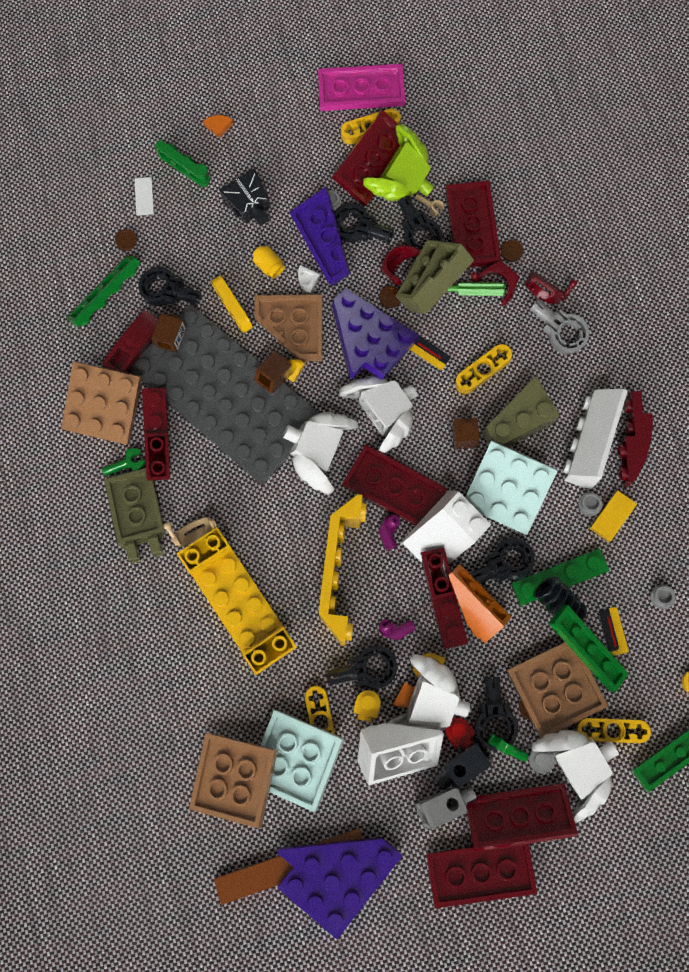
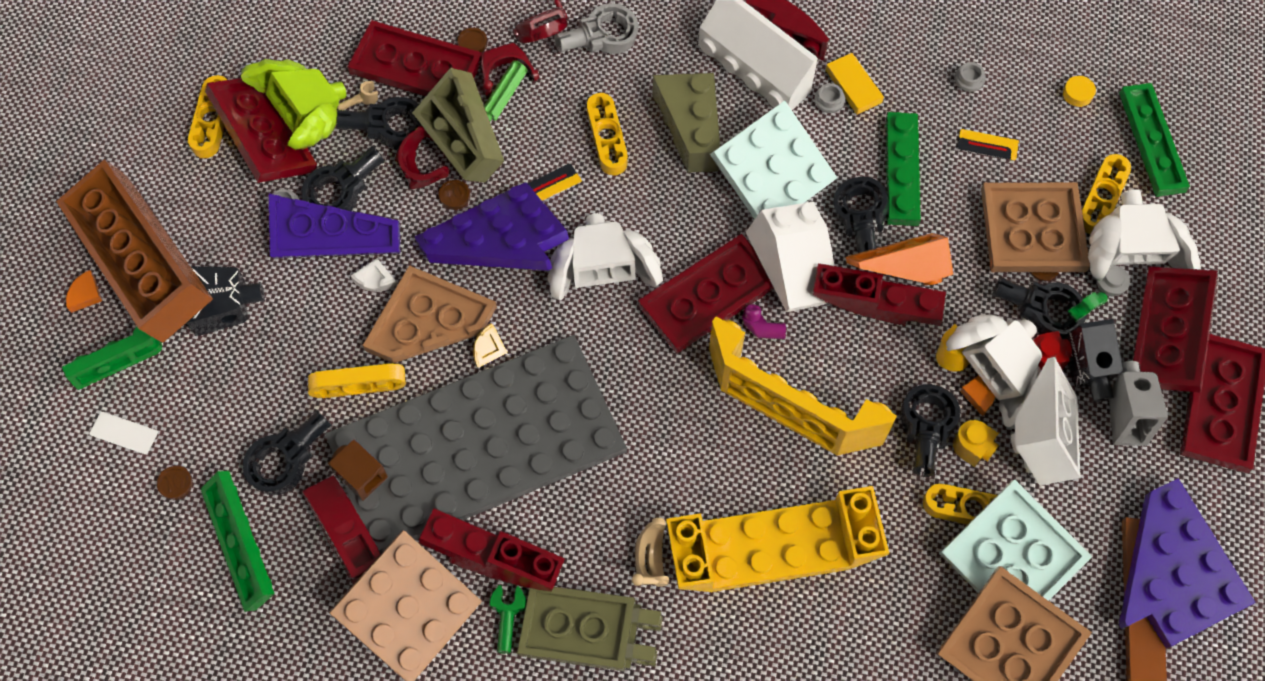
camera: 70 degrees left, 10 degrees down
(247, 134) = (134, 251): none -> dark orange brick
(268, 261) = (323, 311): yellow brick -> none
(273, 372) = (488, 362): reddish brown brick -> none
(316, 446) = (616, 355): white torso -> none
(361, 87) = (150, 103): dark pink plate -> none
(394, 631) = (893, 372): magenta arm -> none
(465, 433) = (681, 184): reddish brown brick -> none
(555, 593) = (937, 173): black piece -> none
(588, 648) = (1005, 167): green plate -> none

